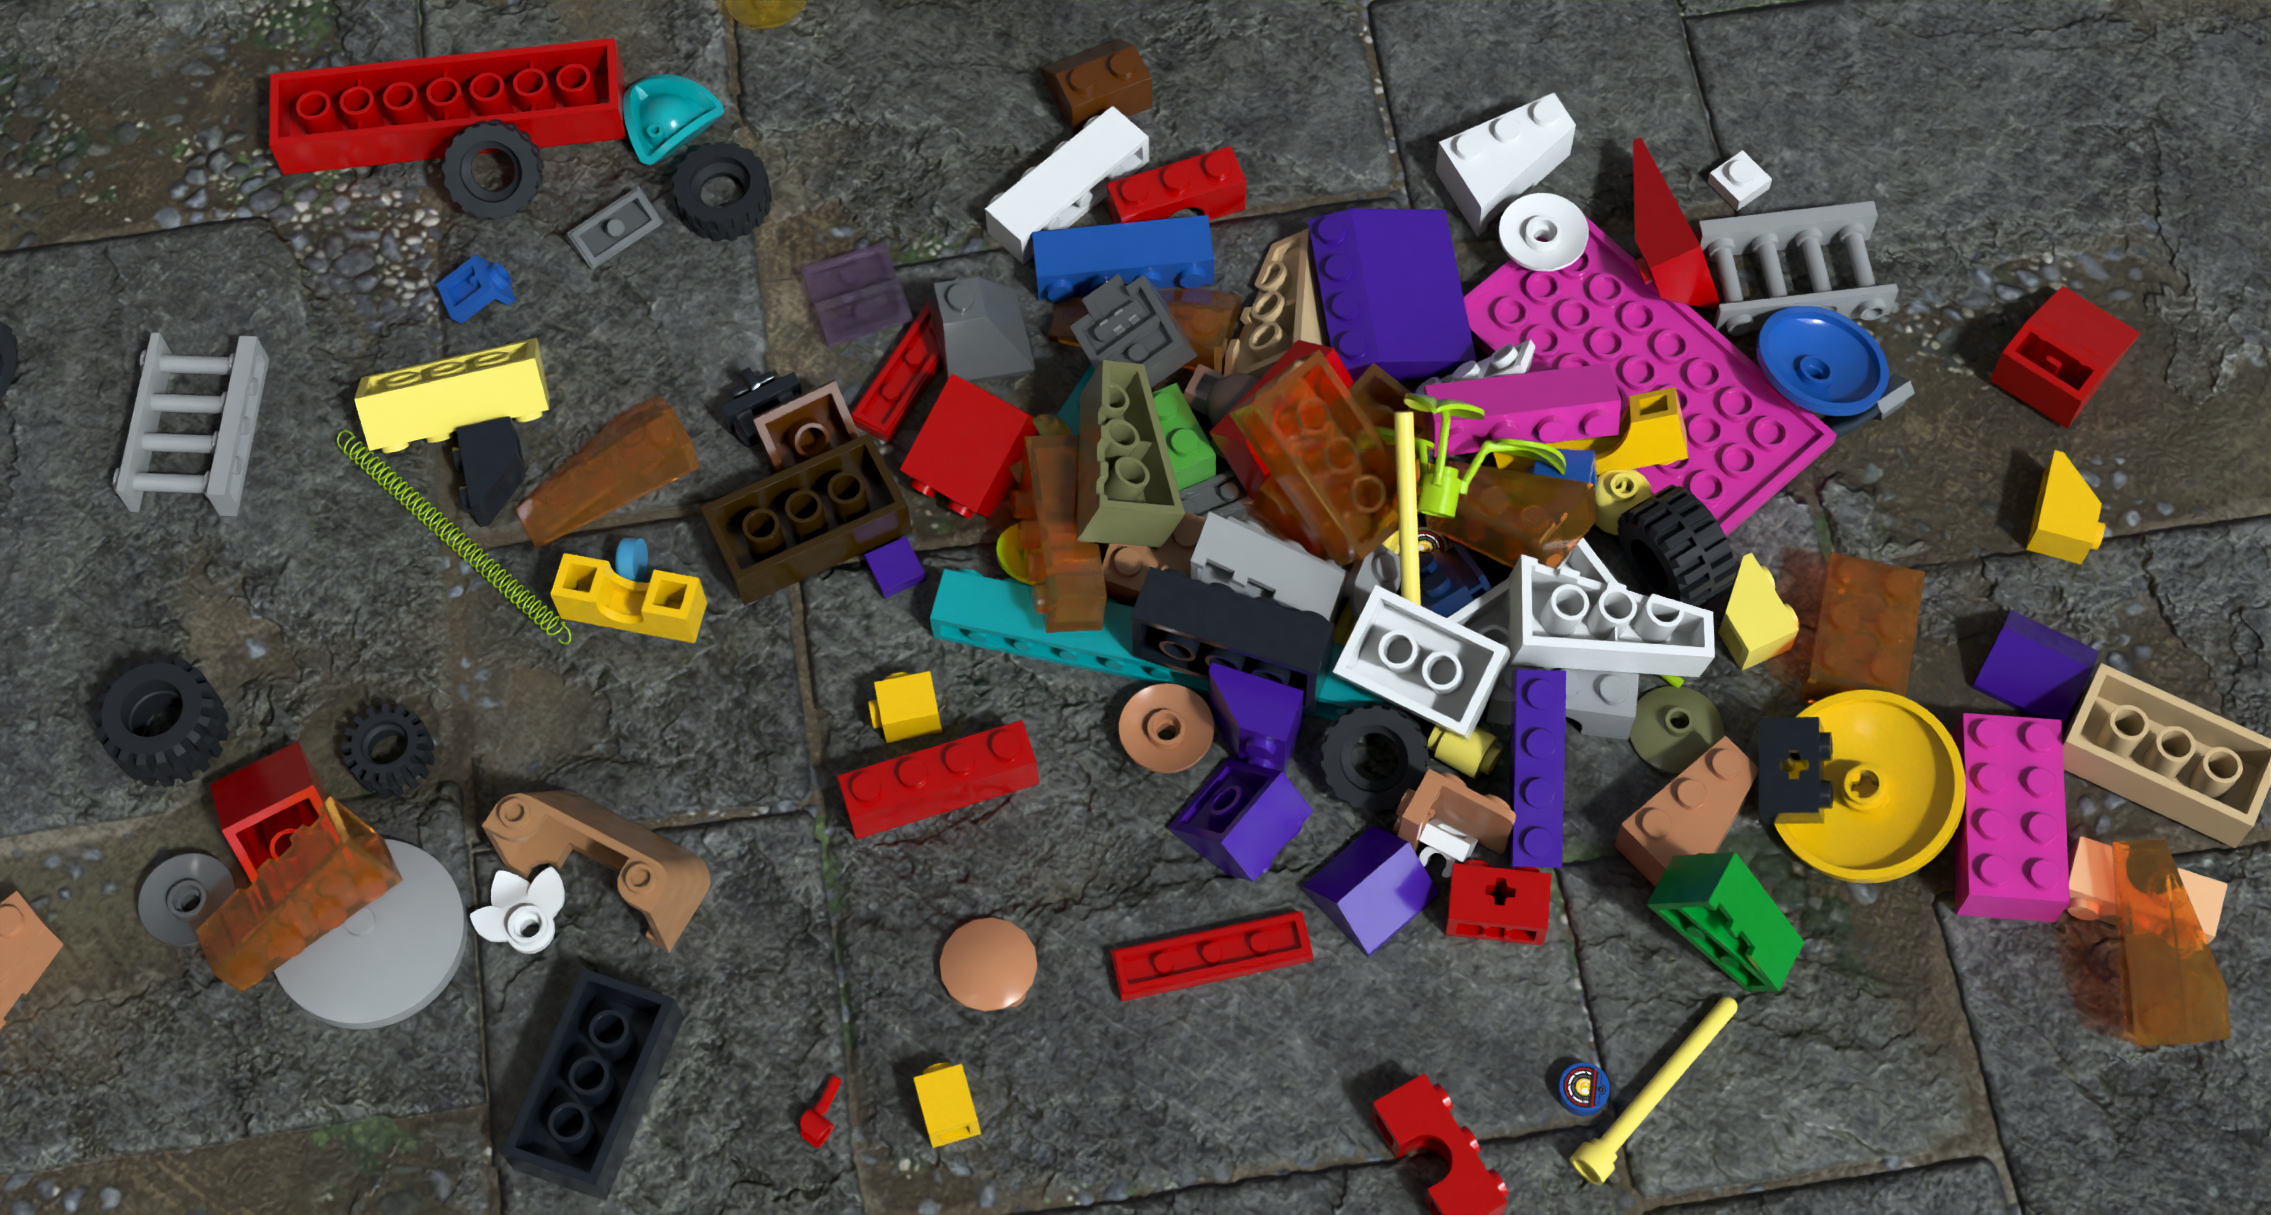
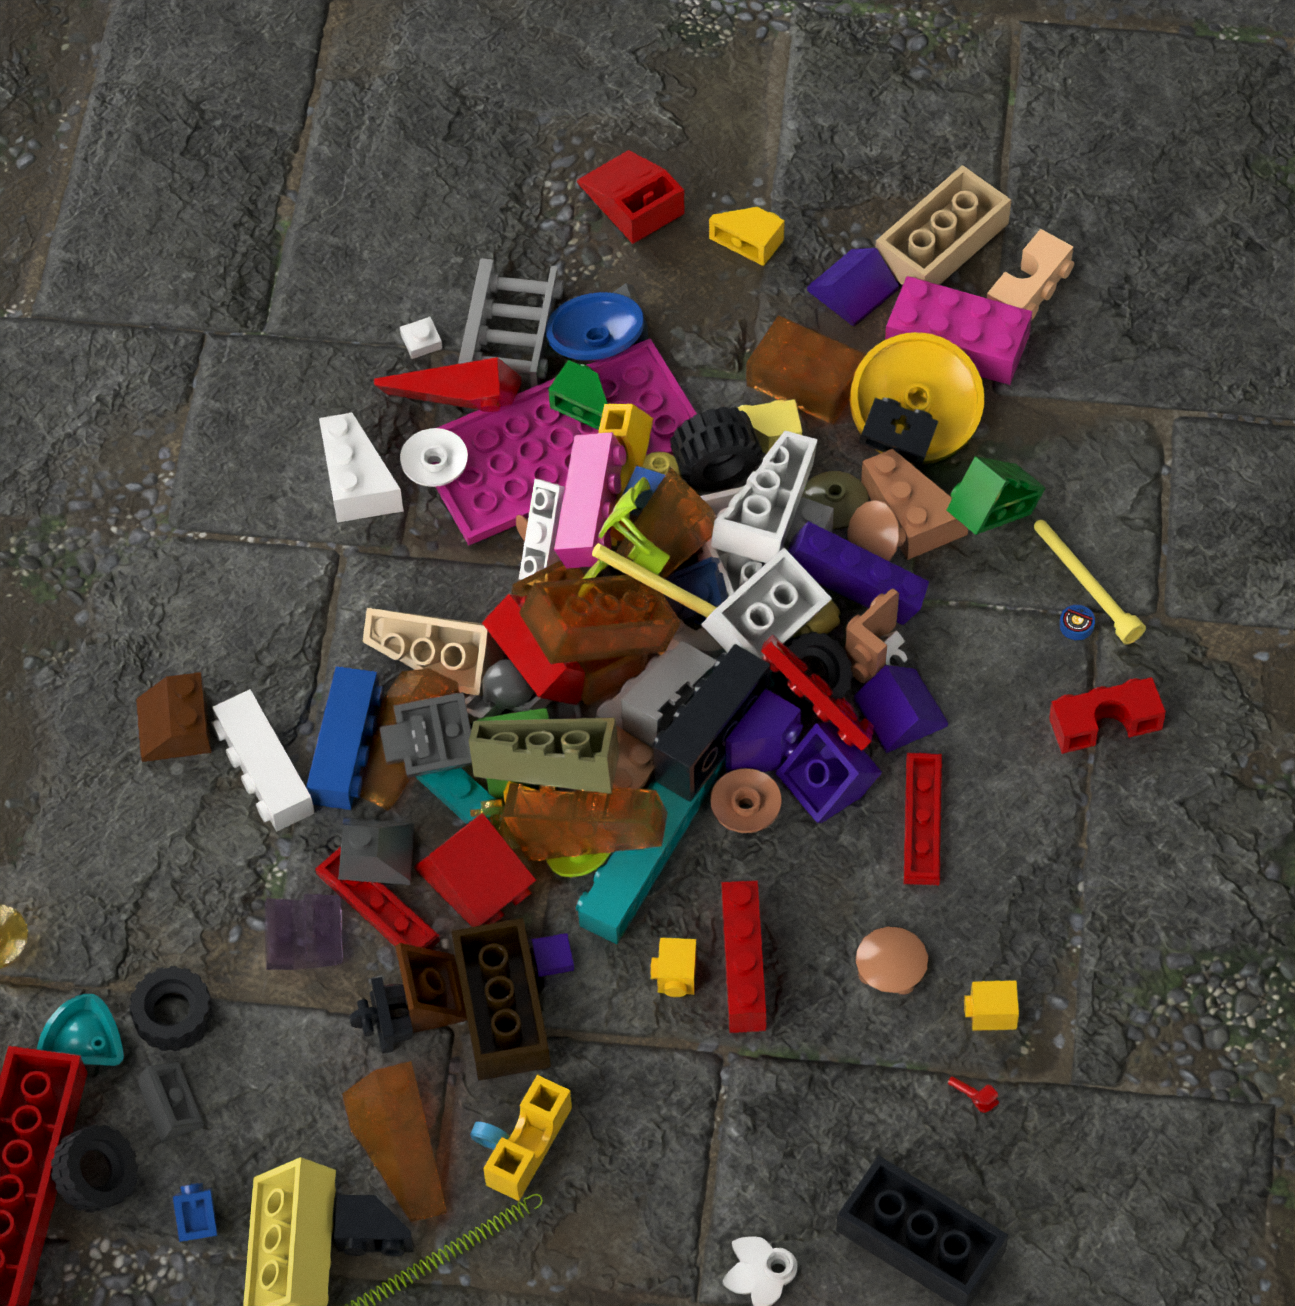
camera: 75 degrees left, 5 degrees down
(652, 871) = (708, 1217): medium nougat windscreen -> none
(1203, 182) = (303, 687): red arch -> none
(1312, 779) = (819, 693): none -> red wing
(1392, 291) = (443, 568): dark purple slope -> none
(1473, 906) = (935, 649): red brick -> none
(1622, 784) = (876, 529): none -> nougat dish
(1706, 367) = (578, 394): none -> green slope
(2166, 964) = (1077, 277): clear orange wedge -> none

